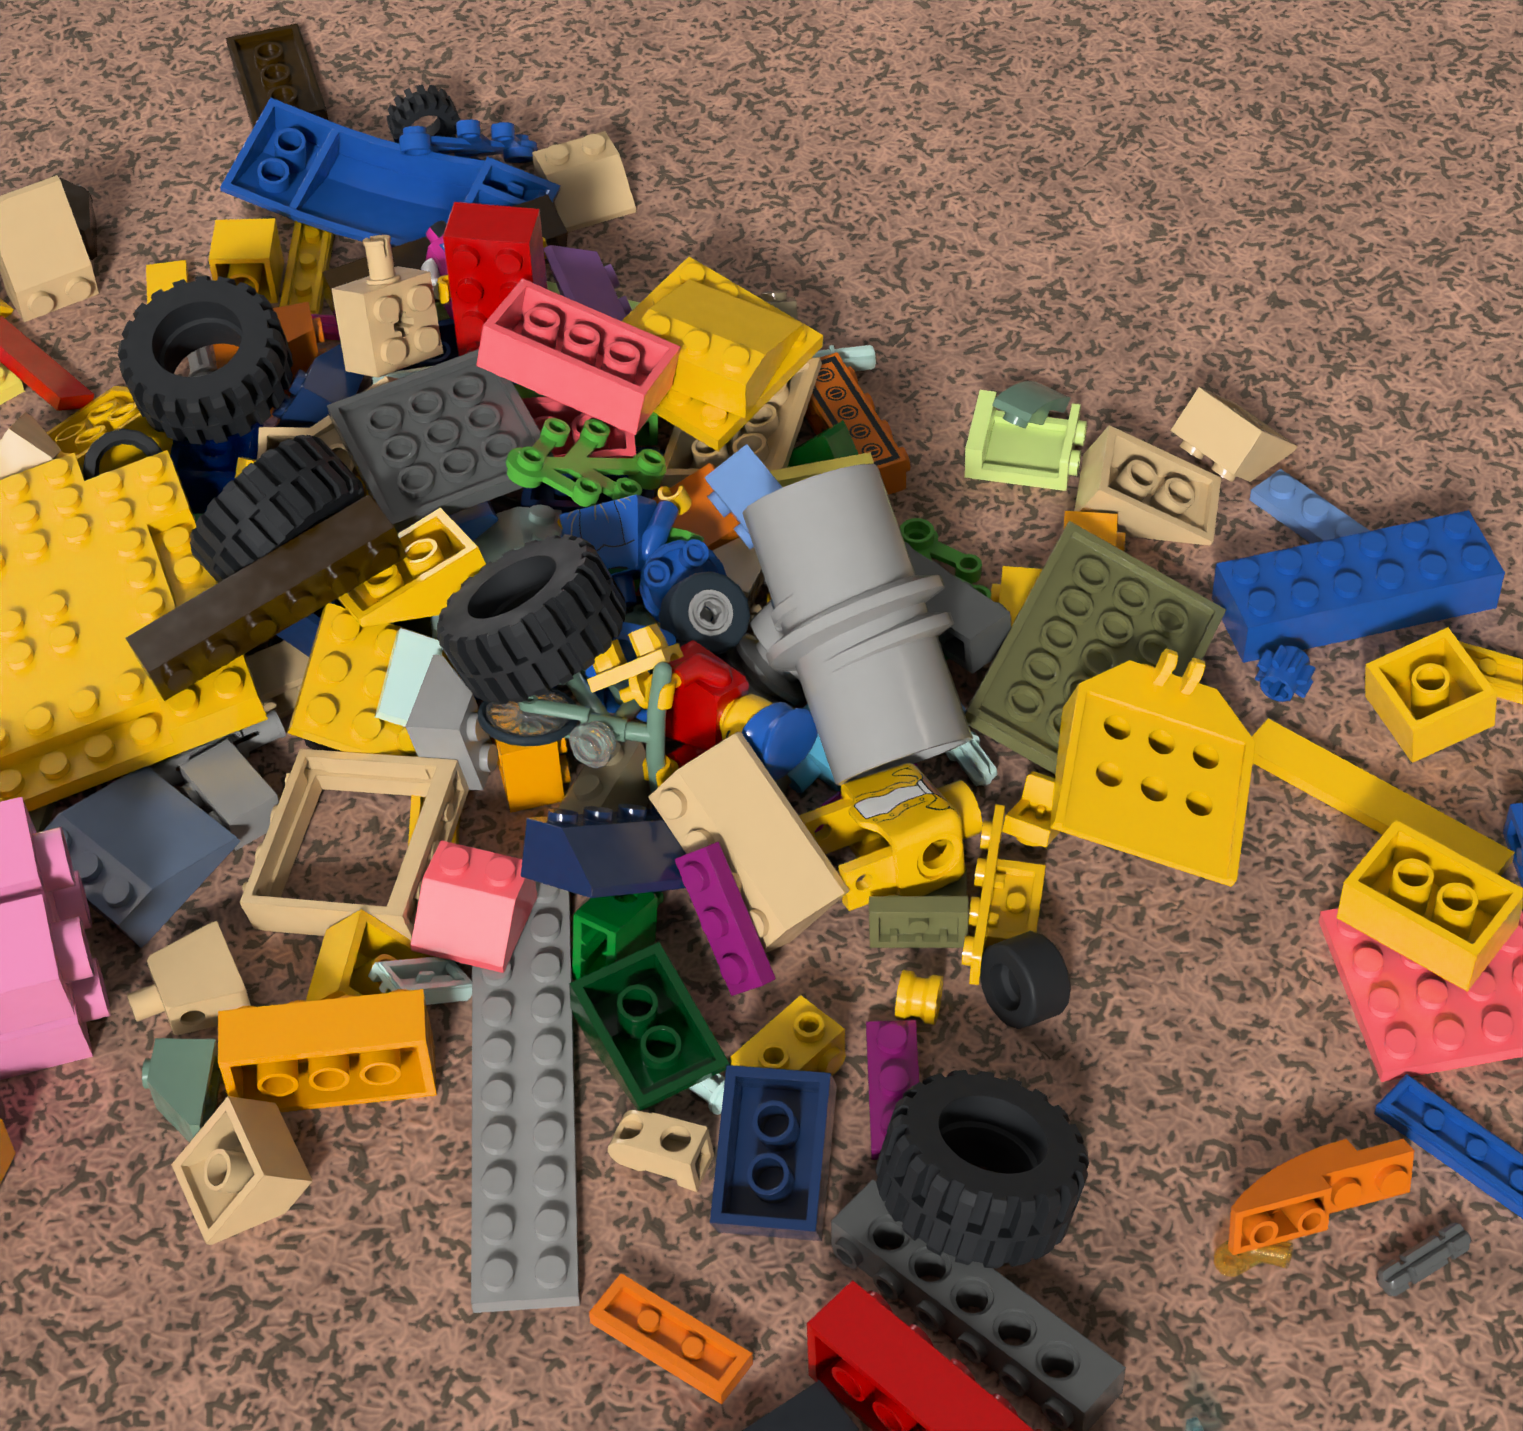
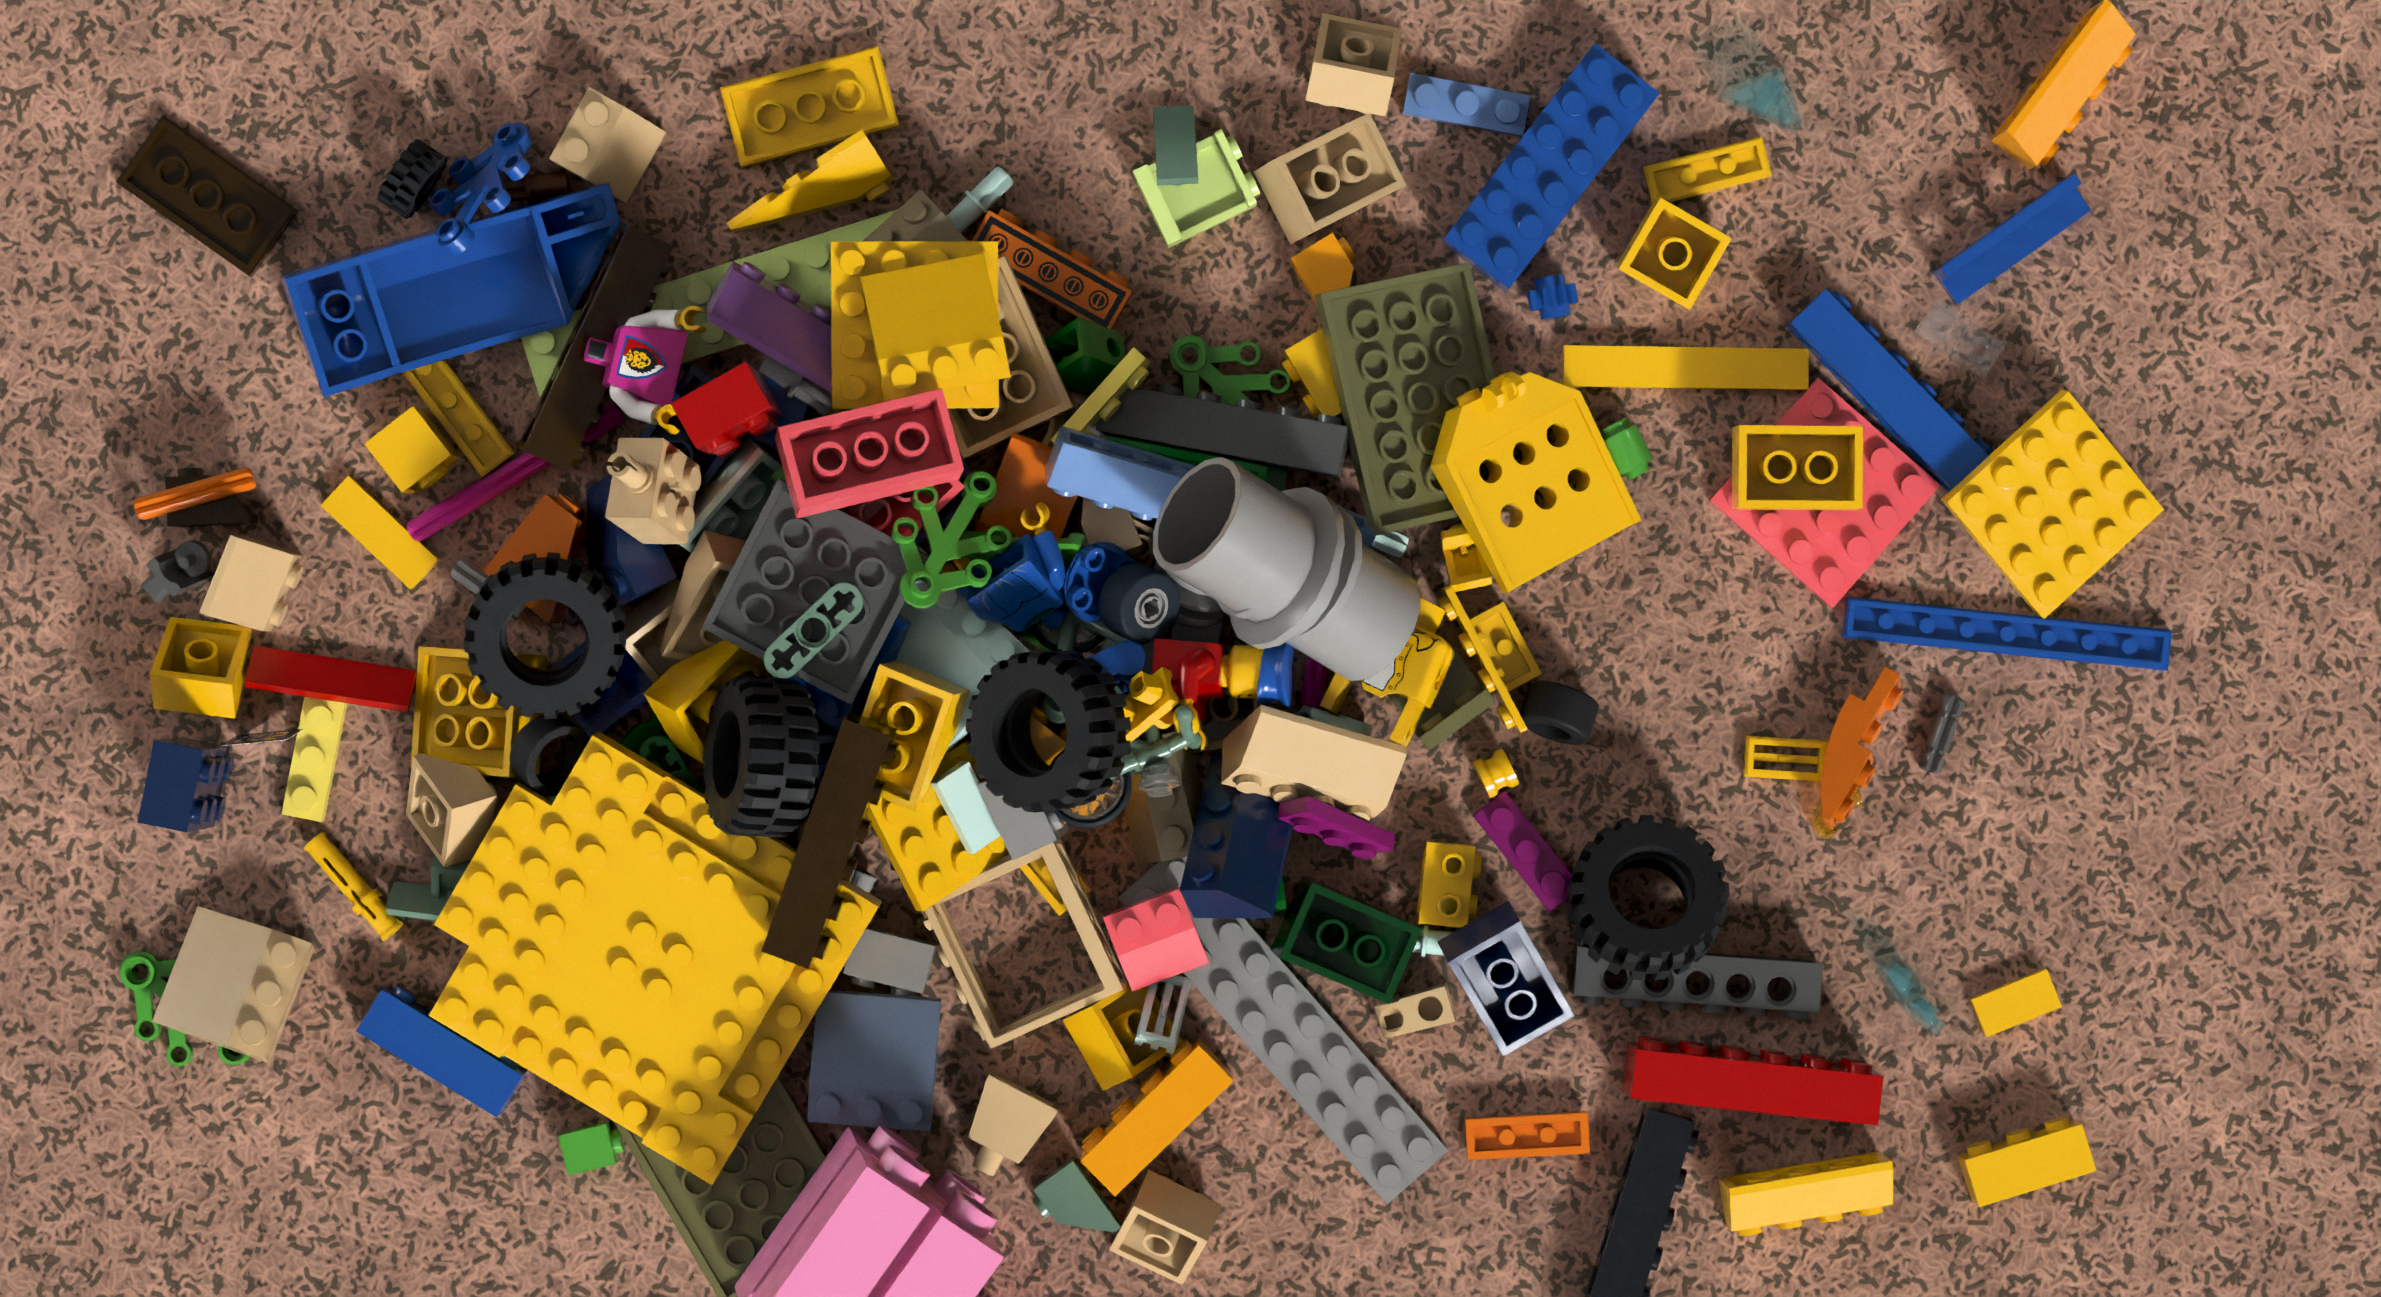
camera: 40 degrees left, 40 degrees up
(76, 190) = (194, 493): none -> orange axle
(427, 460) = (798, 658): none -> sand green beam
(746, 257) = (842, 178): none -> yellow wedge
(760, 248) = (809, 106): none -> yellow tile
(1224, 1176) = (1751, 756): none -> yellow tile
(1266, 822) = (1627, 448): none -> bright green brick

